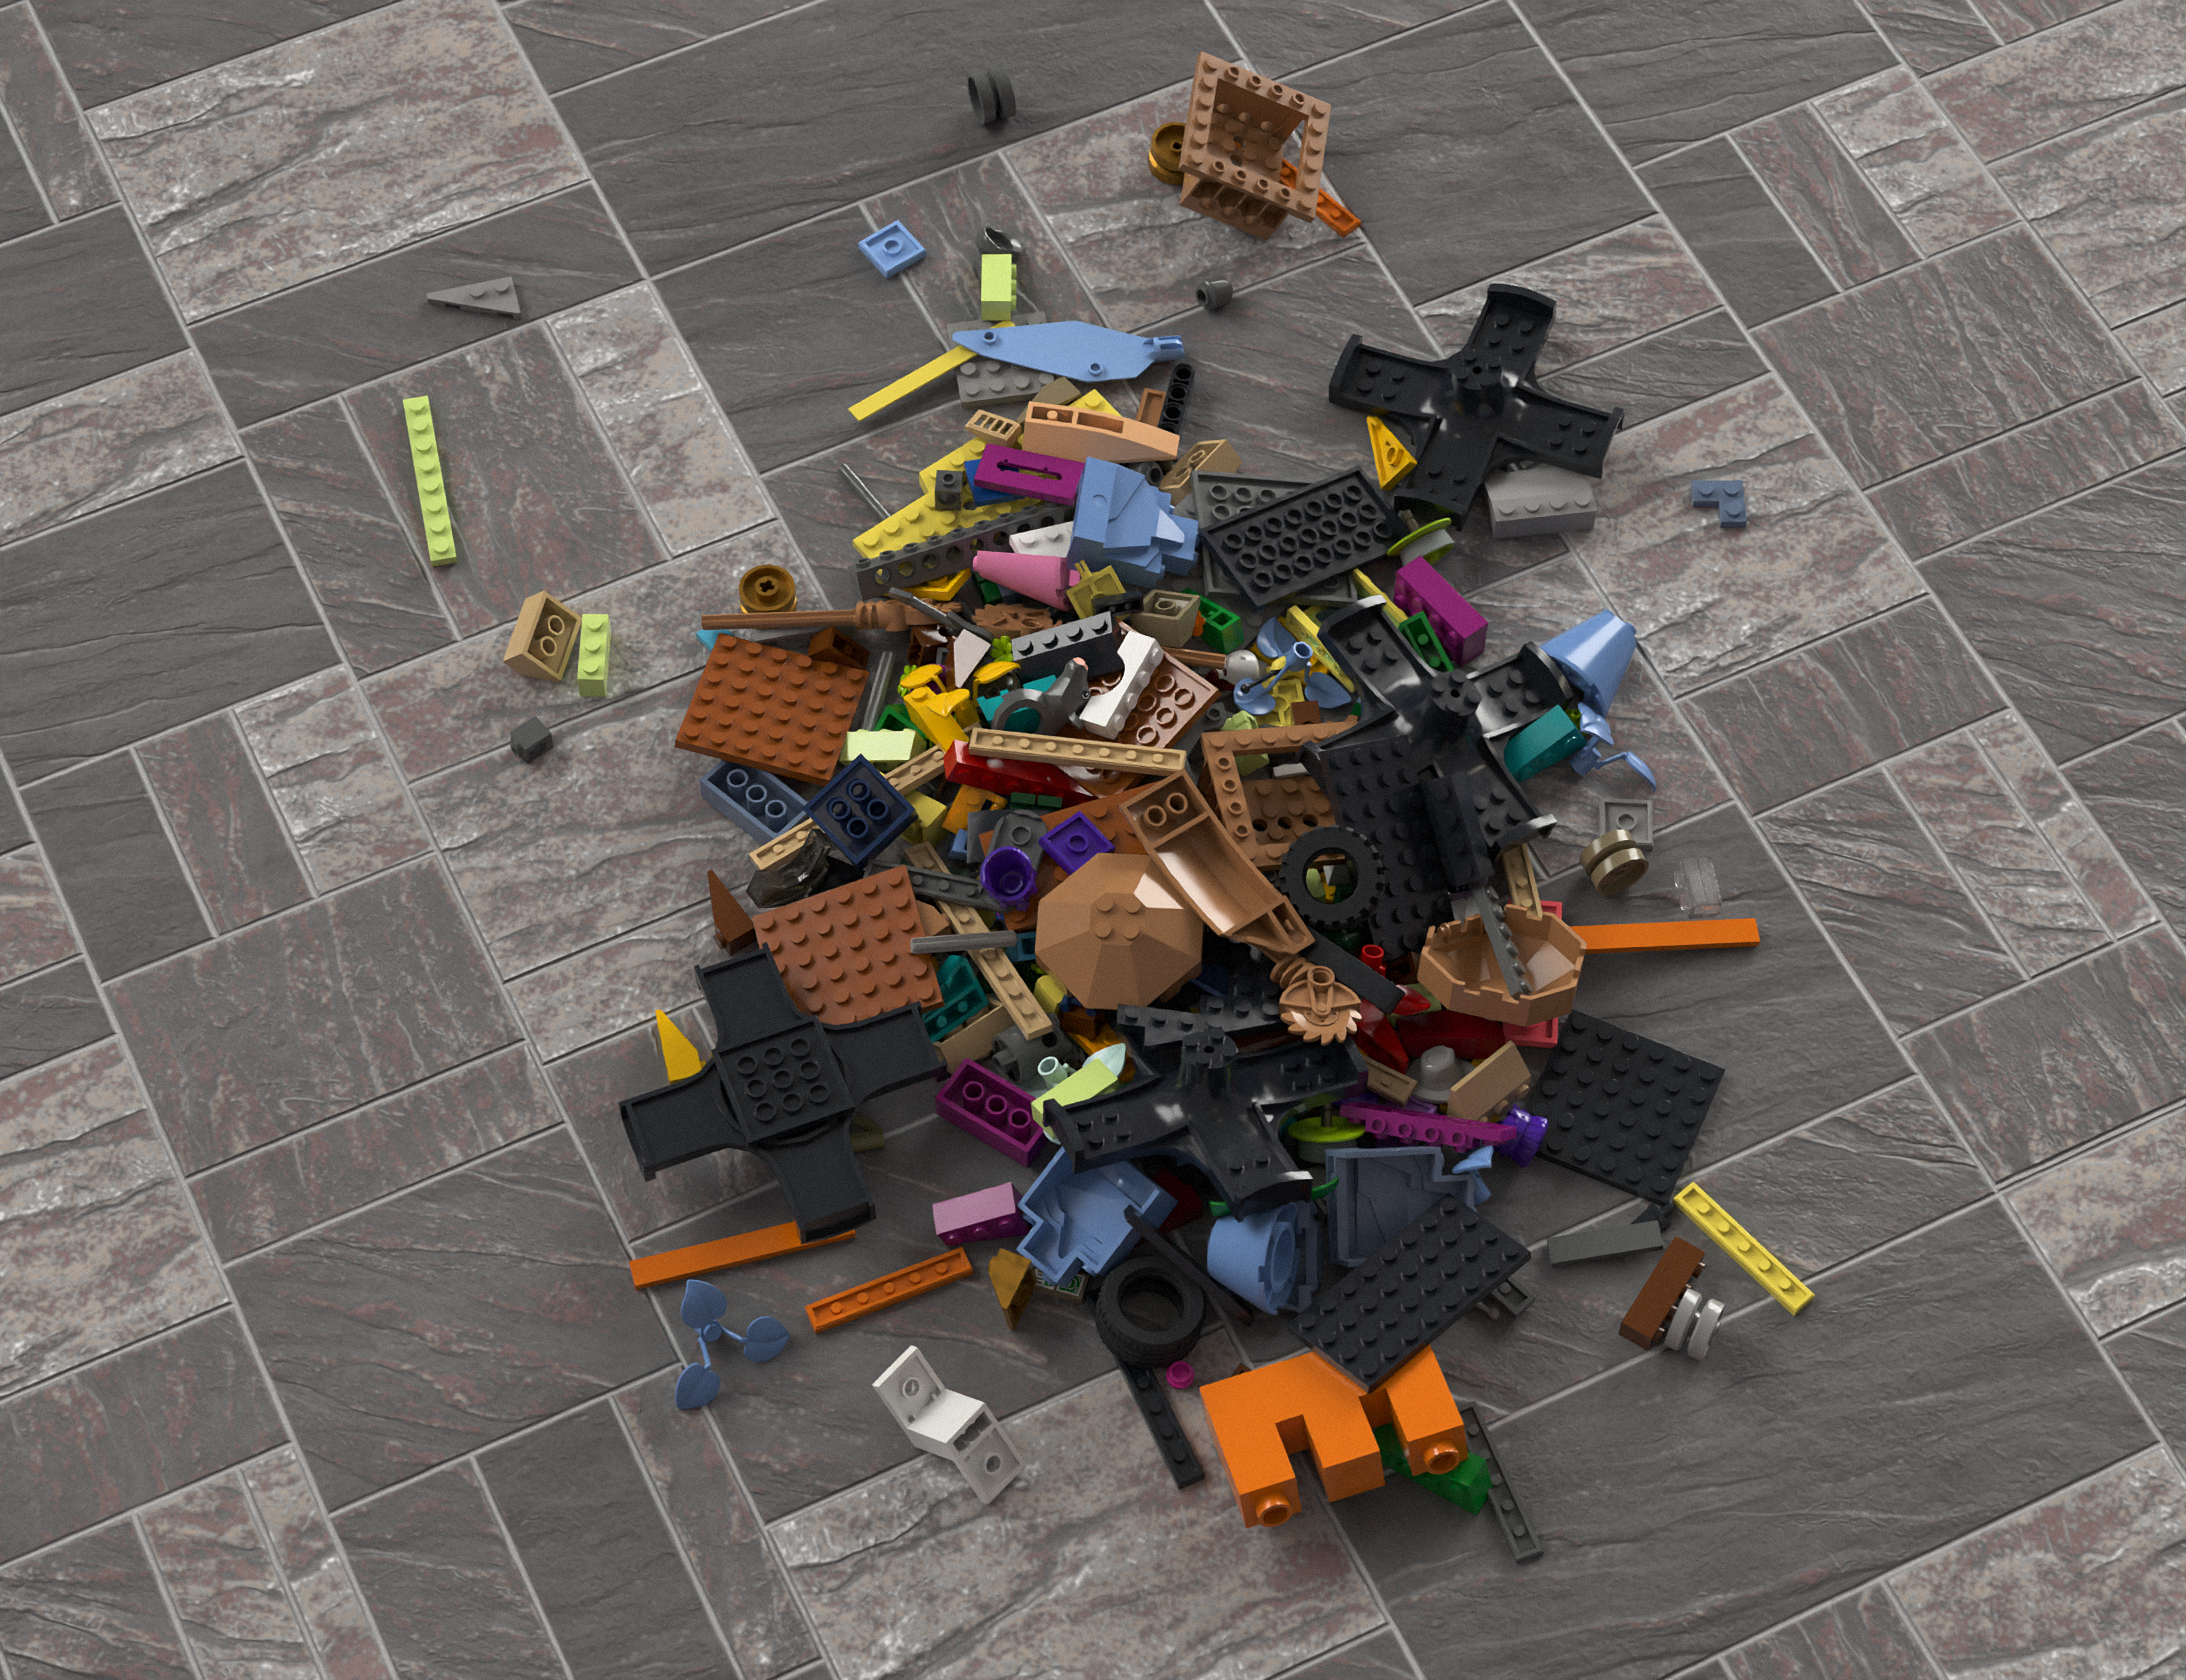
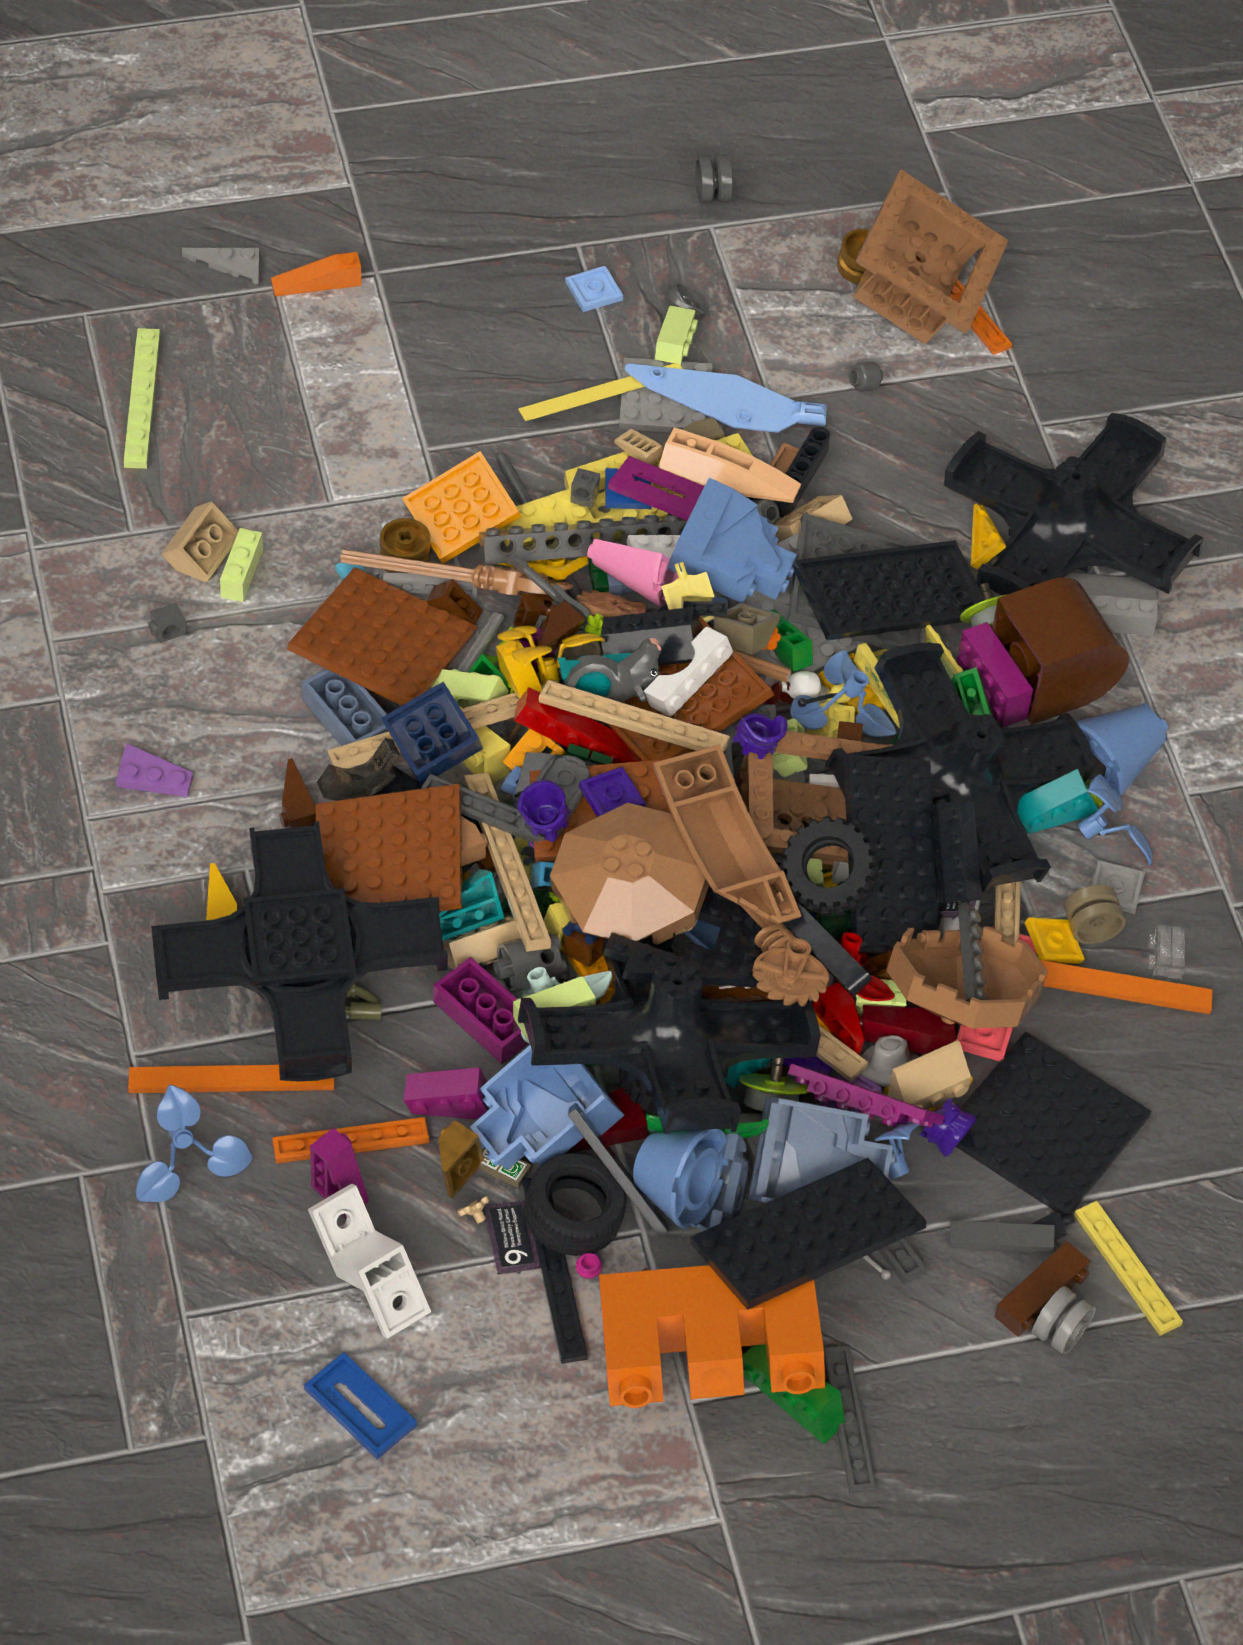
camera: 10 degrees right, 5 degrees down
(561, 918) = (152, 774): none -> medium lavender wing
(591, 292) = (327, 273): none -> orange wedge
(818, 538) = (461, 506): none -> light orange plate
(886, 1329) = (335, 1166): none -> magenta wedge
(956, 1552) = (377, 1400): none -> blue piece
(963, 942) = (492, 857): light grey axle -> none
(1043, 1339) = (475, 1209): none -> tan plant
(1089, 1361) = (510, 1238): none -> piece
(1219, 742) = (760, 734): none -> dark purple hair
(1504, 566) = (1059, 646): none -> reddish brown brick
(1577, 900) = (1054, 940): none -> yellow tile

